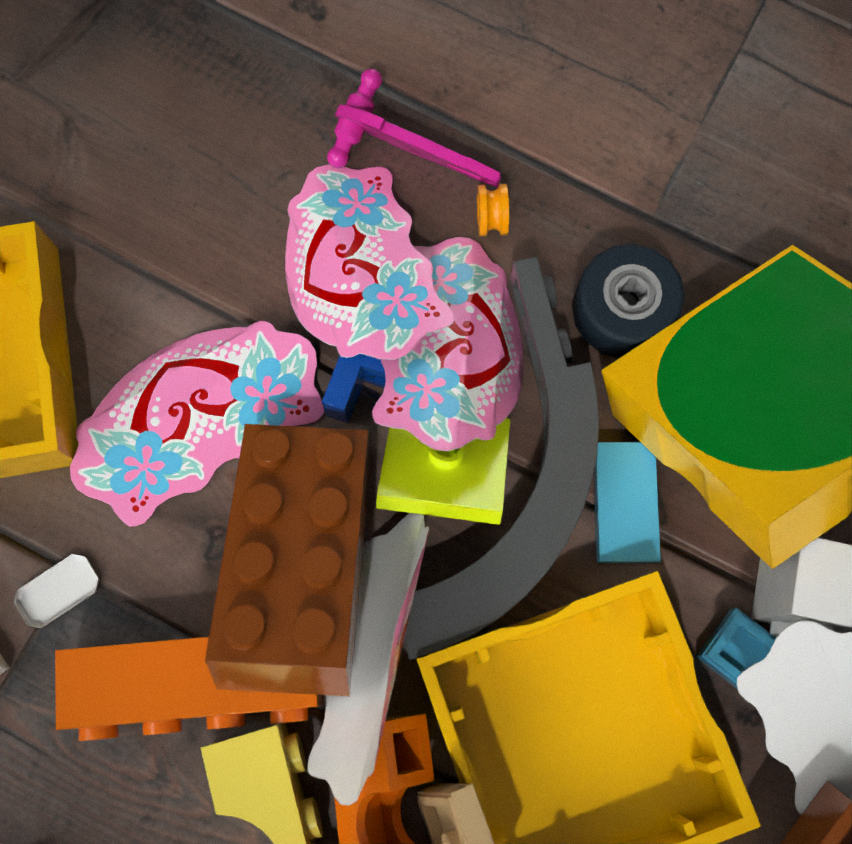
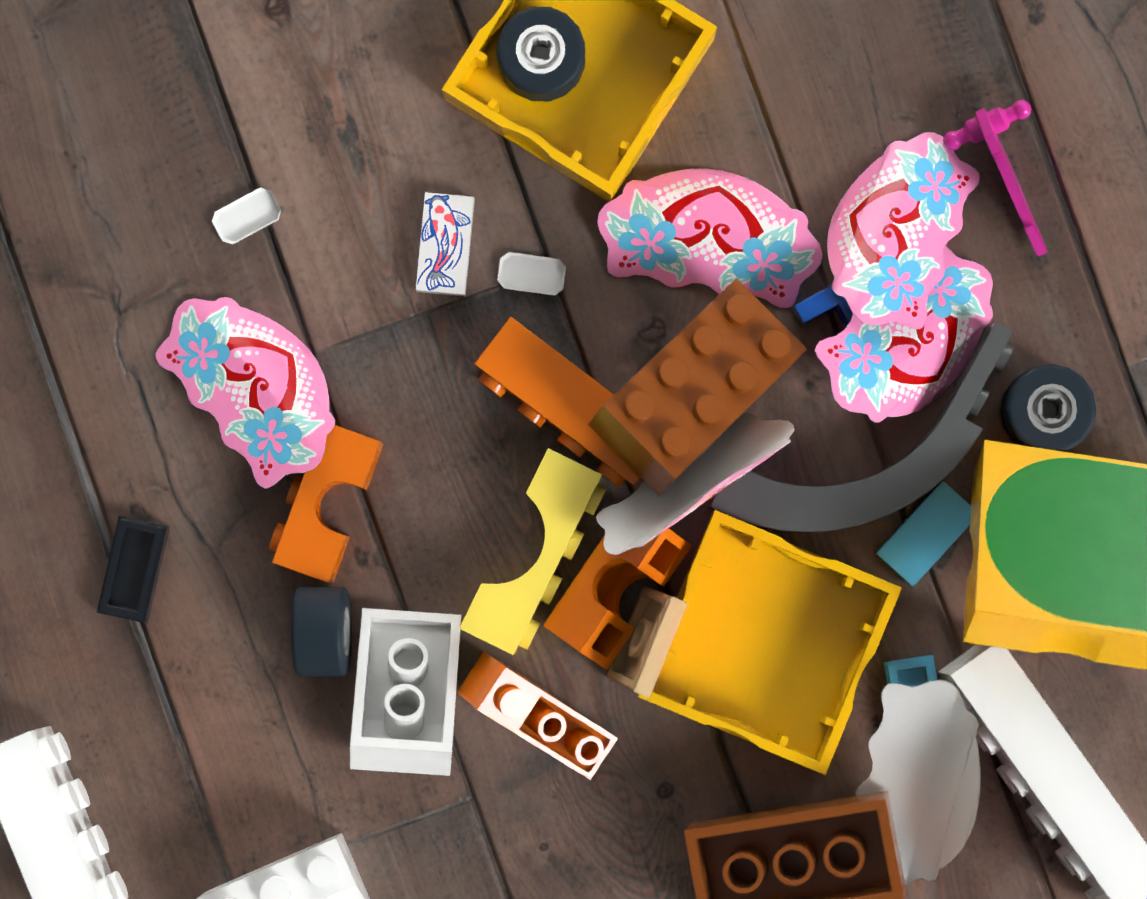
camera: 50 degrees right, 10 degrees up
(446, 484) = (823, 424): neon yellow plate -> none
(492, 209) = (1019, 271): light orange bush -> none

